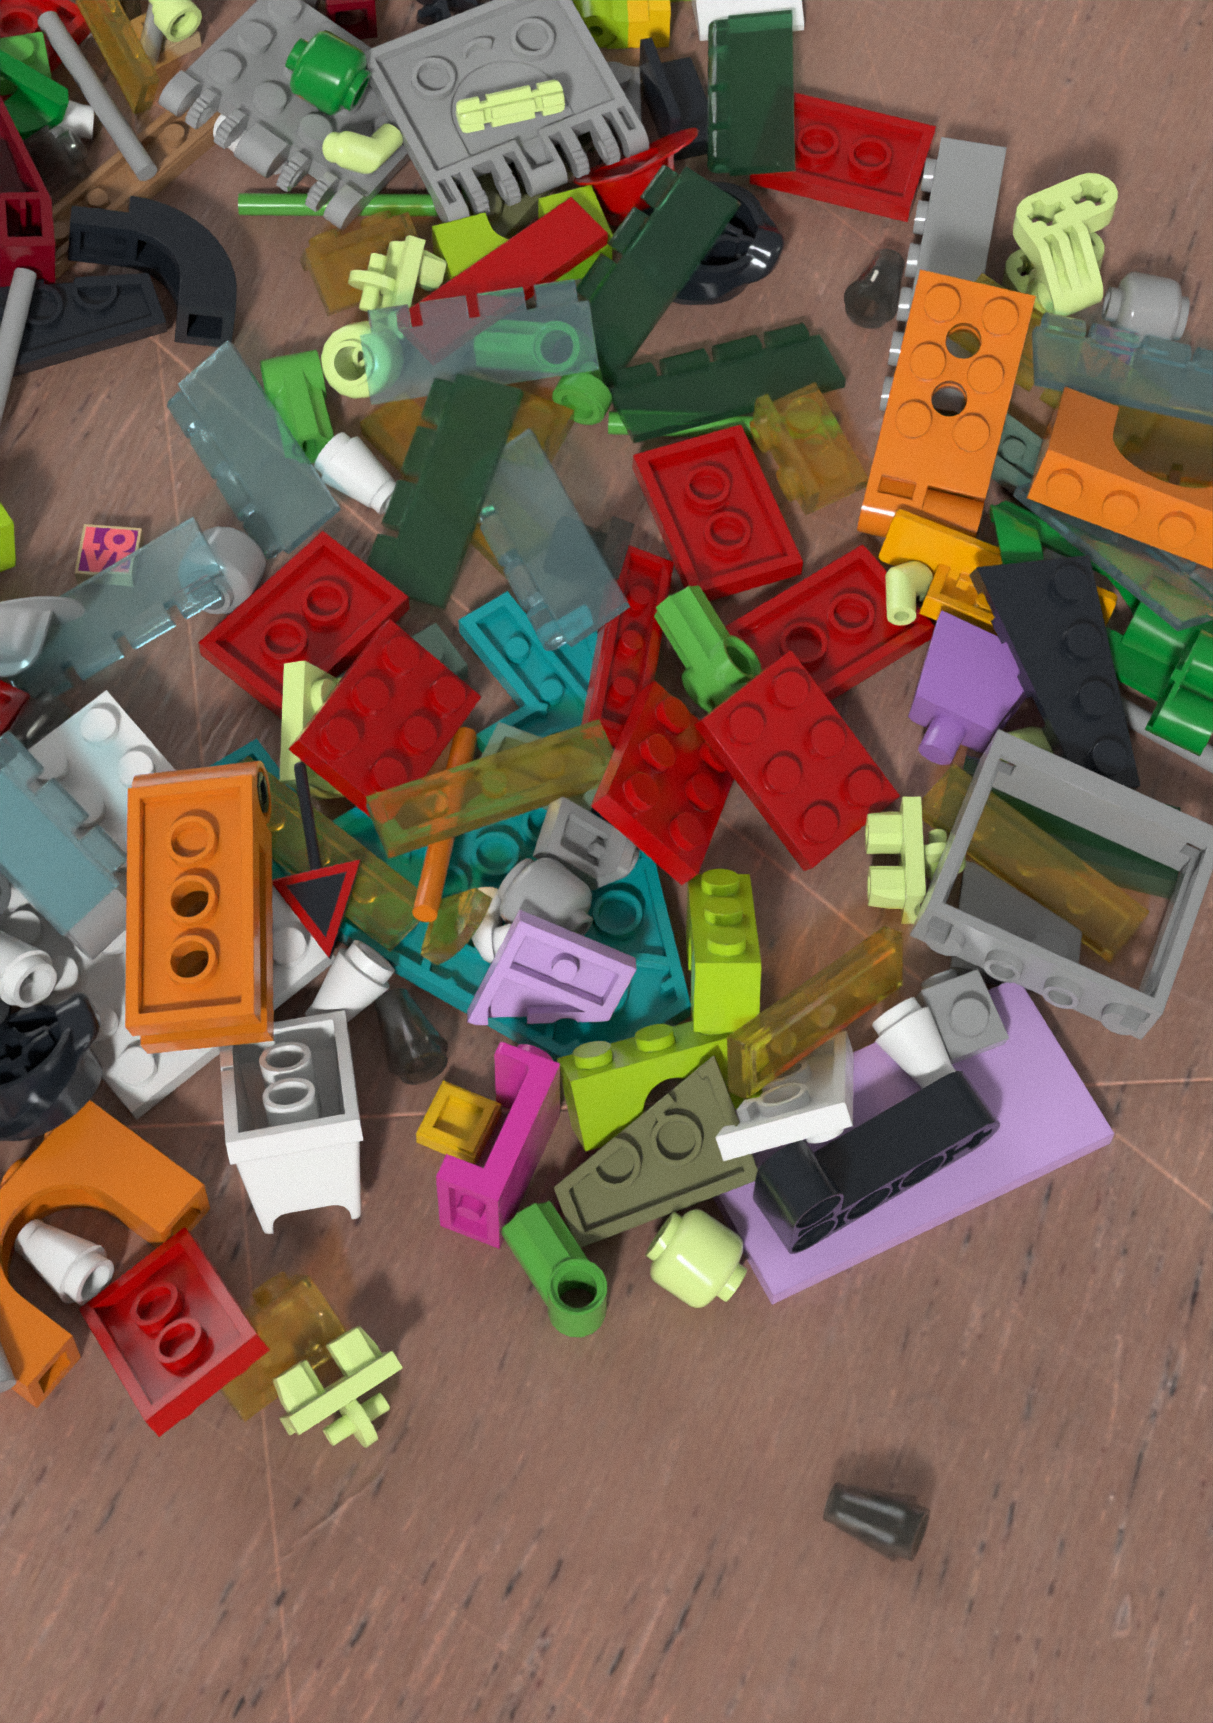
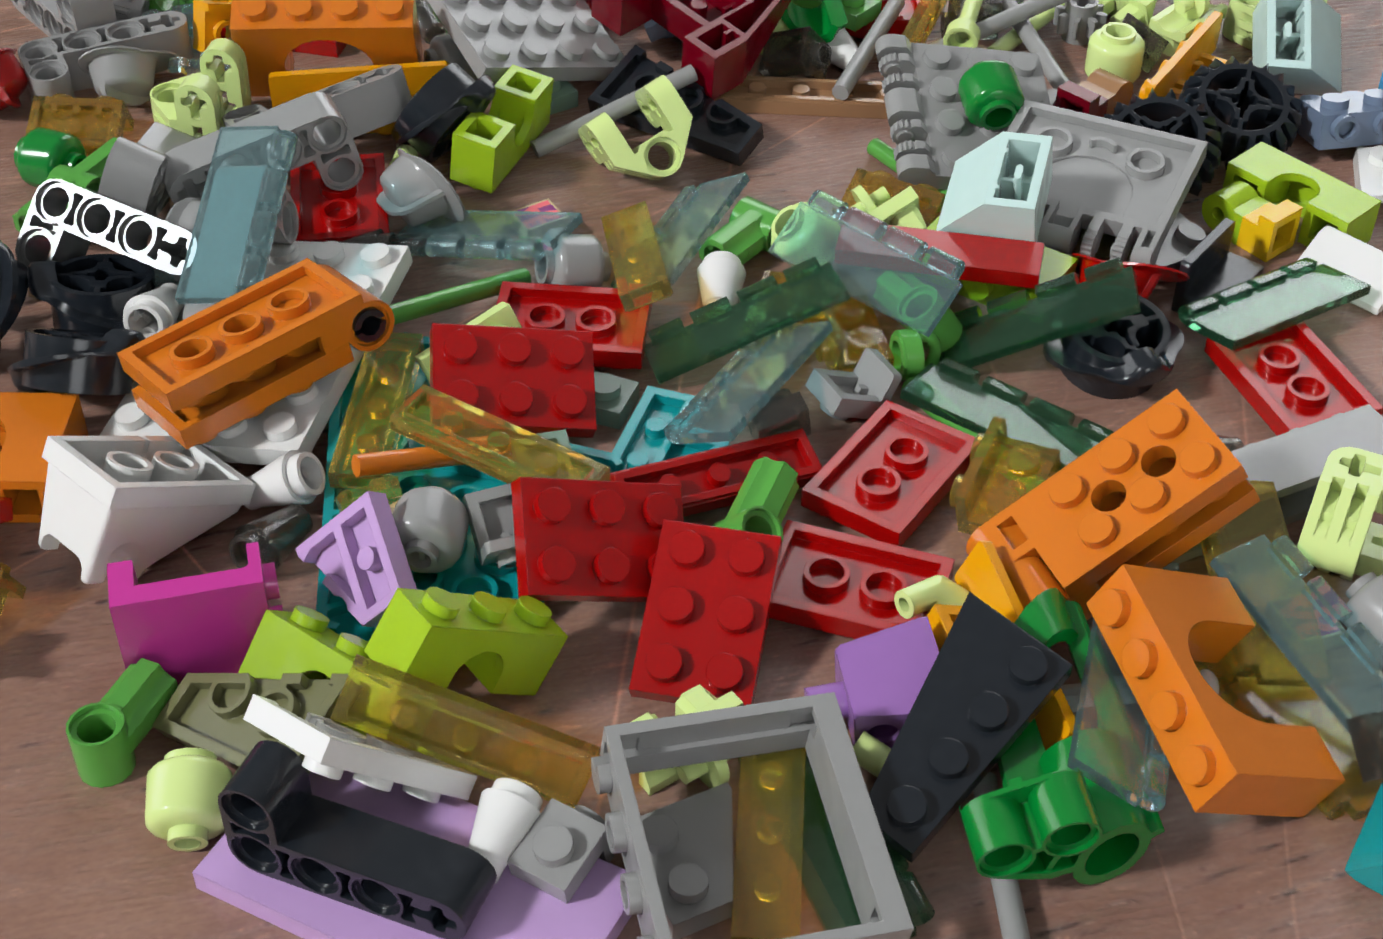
camera: 55 degrees right, 20 degrees down
(112, 389) = (662, 108): none -> yellowish green piece
(171, 250) = (782, 150): black arch -> none
(189, 693) = (455, 296): none -> bright green bar
(267, 509) = (636, 257): none -> clear yellow tile
(322, 893) = (338, 415): piece -> none
(361, 152) = (951, 139): yellowish green arm -> none
(486, 179) = (1000, 188): none -> light aqua slope
(510, 106) = (1085, 180): yellowish green axle -> none
(595, 463) = (855, 392): none -> light grey bracket

